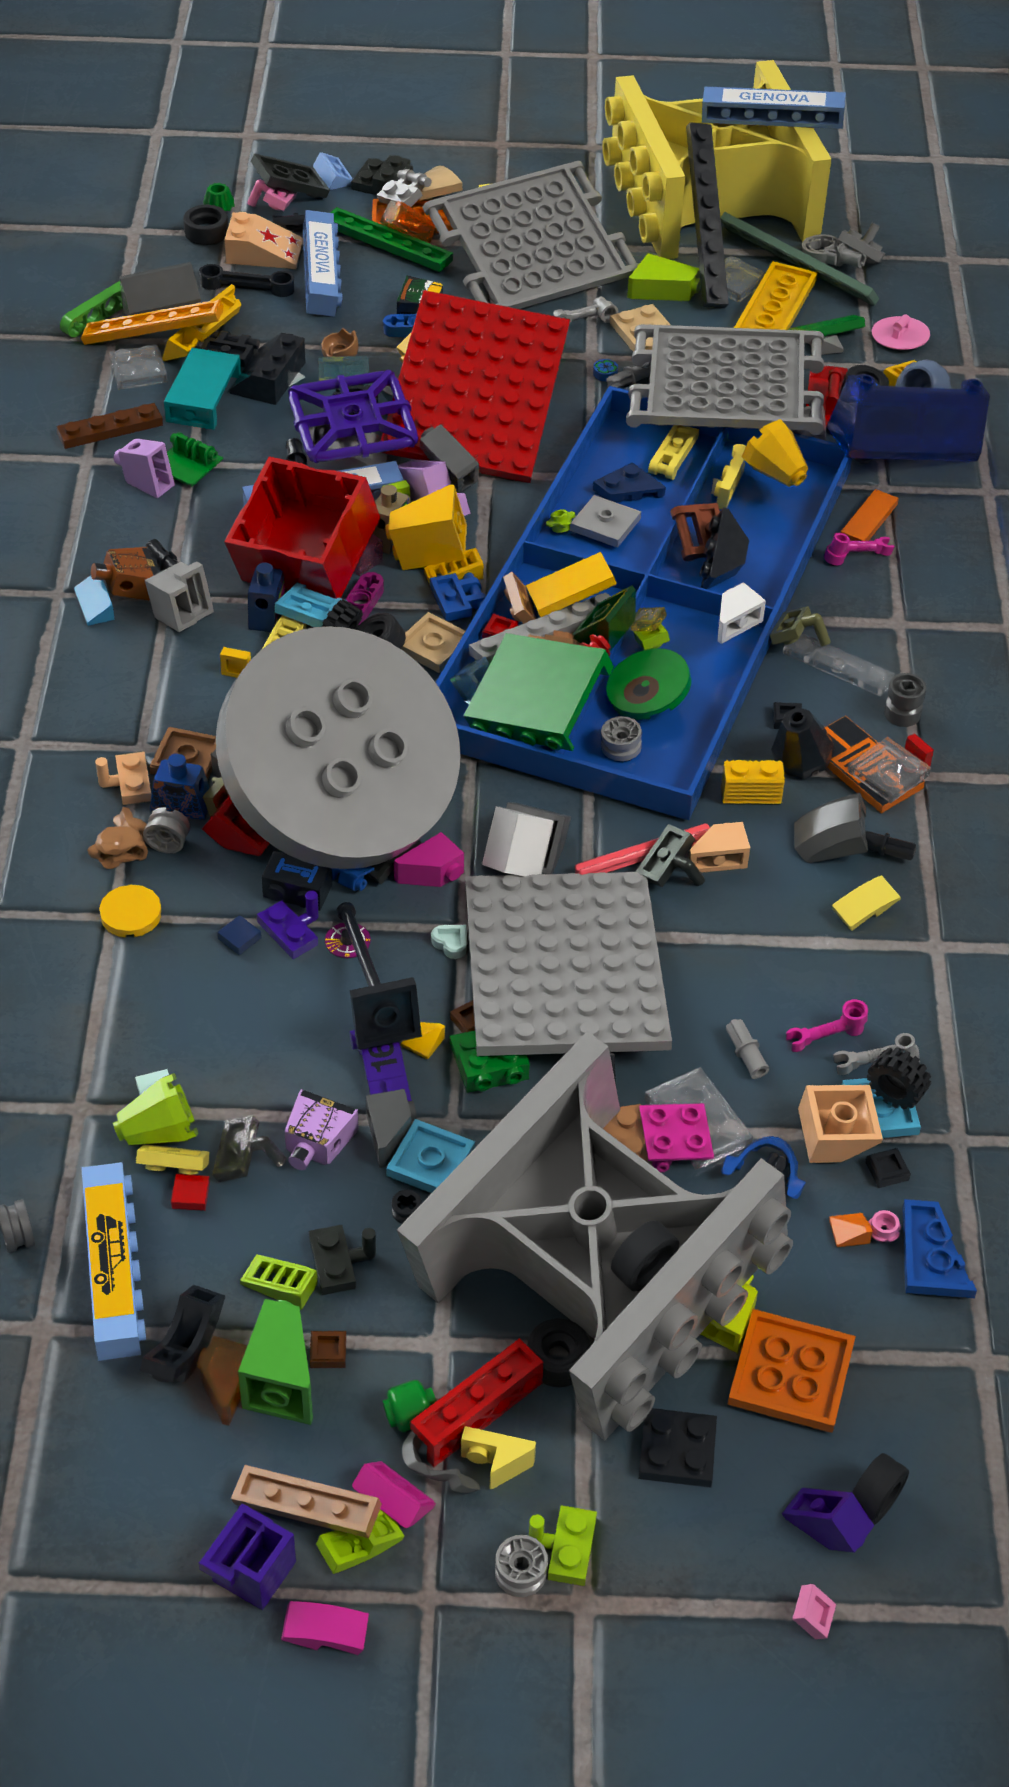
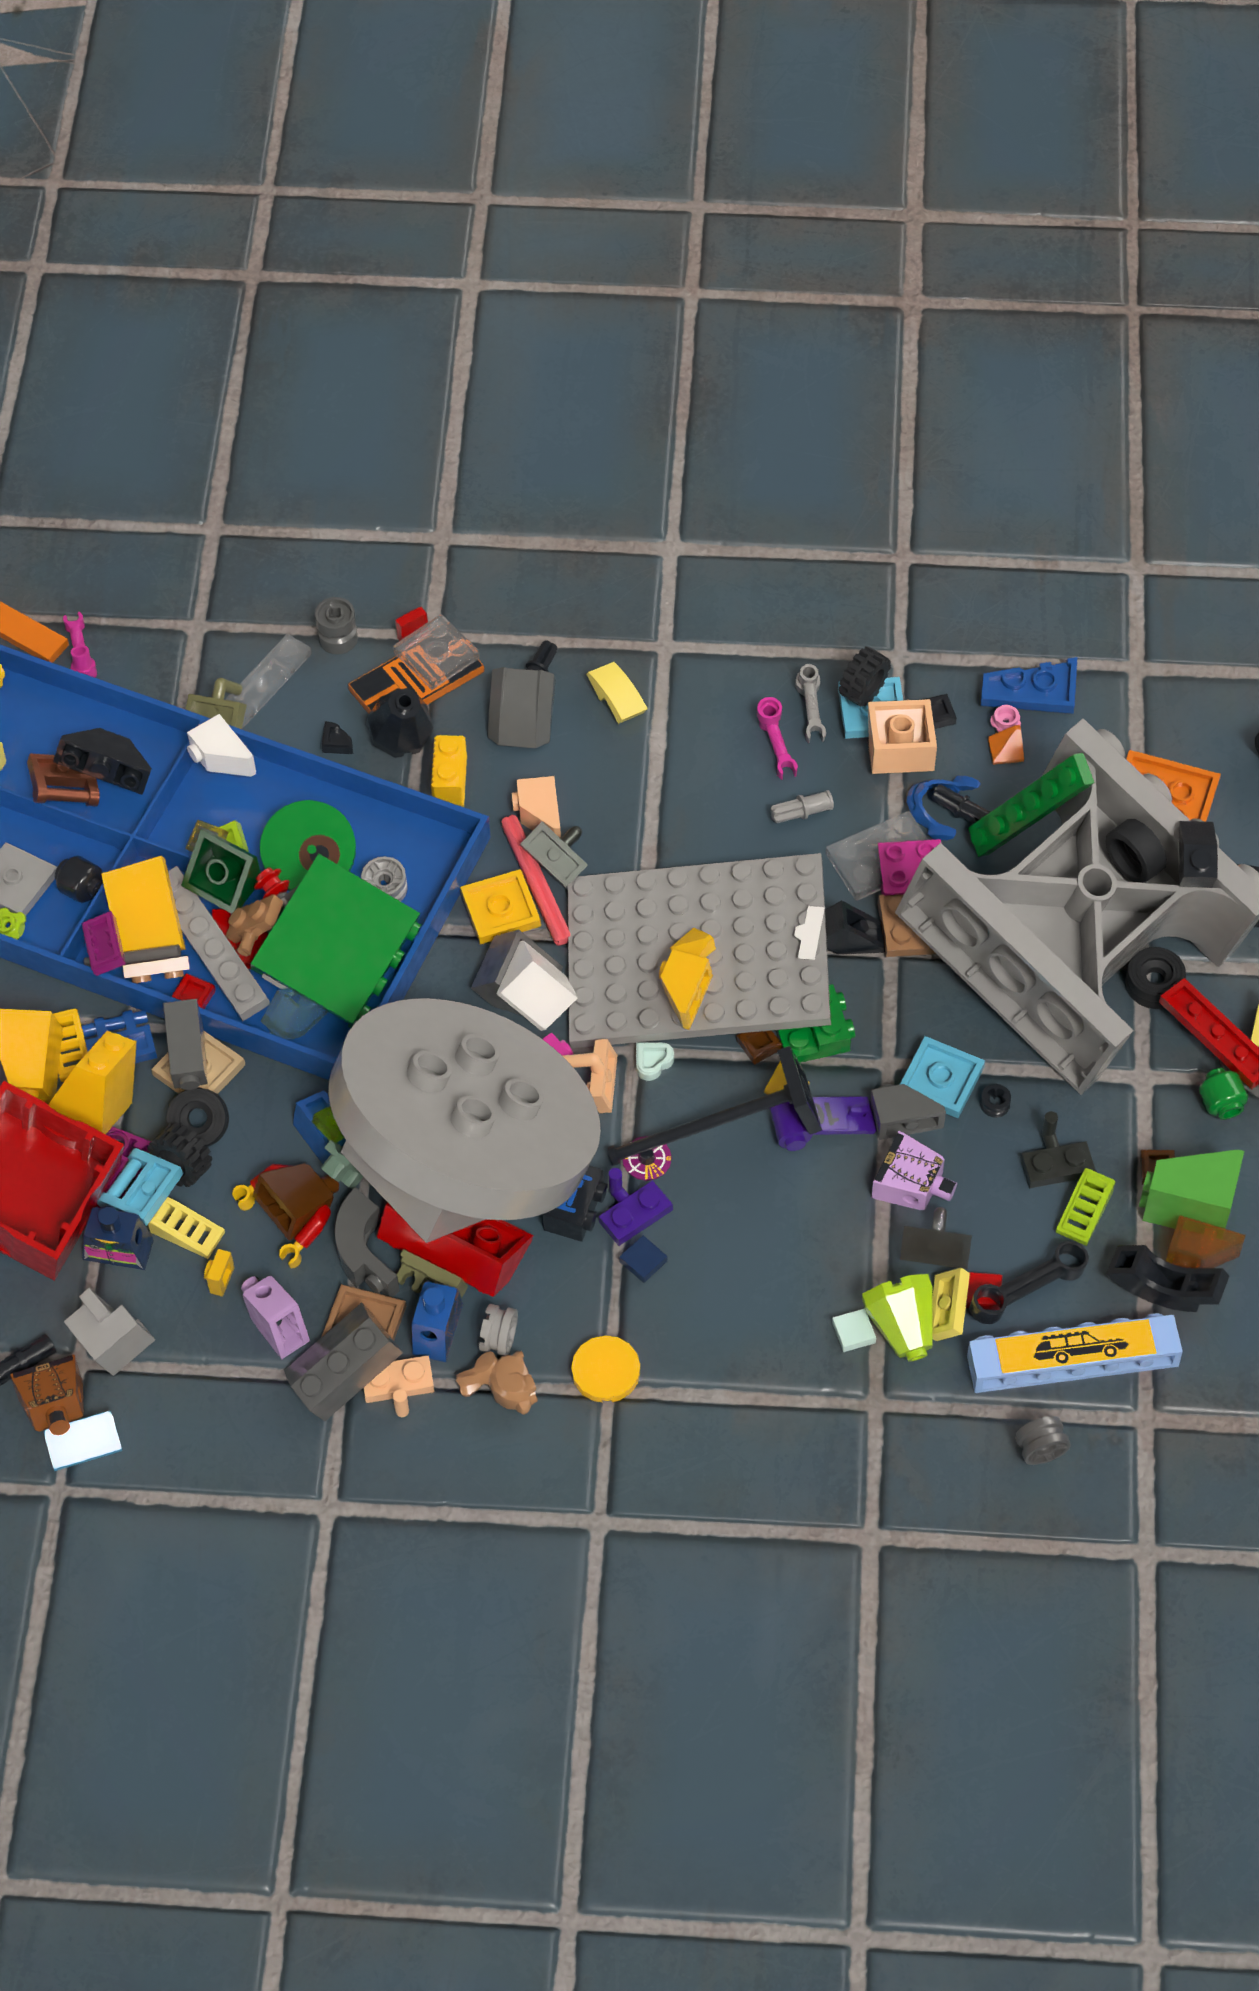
camera: 85 degrees left, 10 degrees up
(138, 731) = (342, 1362): none -> dark grey slope
(190, 691) = (269, 1303): none -> lavender torso
(191, 1222) = (1028, 1282): none -> black piece
(398, 570) = (99, 1084): none -> yellow slope
(426, 896) = (603, 1068): none -> light nougat plate
(432, 610) = (186, 1044): none -> dark grey slope
(505, 934) = (685, 983): none -> yellow slope
(528, 585) = (149, 954): none -> dark grey bar
(534, 560) = (103, 943): none -> magenta plate
(556, 946) = (695, 943): none -> yellow slope
(571, 1026) = (810, 932): none -> white sticker
(605, 542) = (78, 878): none -> black head
(609, 825) = (500, 906): none -> yellow plate
(626, 1291) = (1197, 854): none -> black slope
(719, 1178) = (1031, 804): none -> green plate

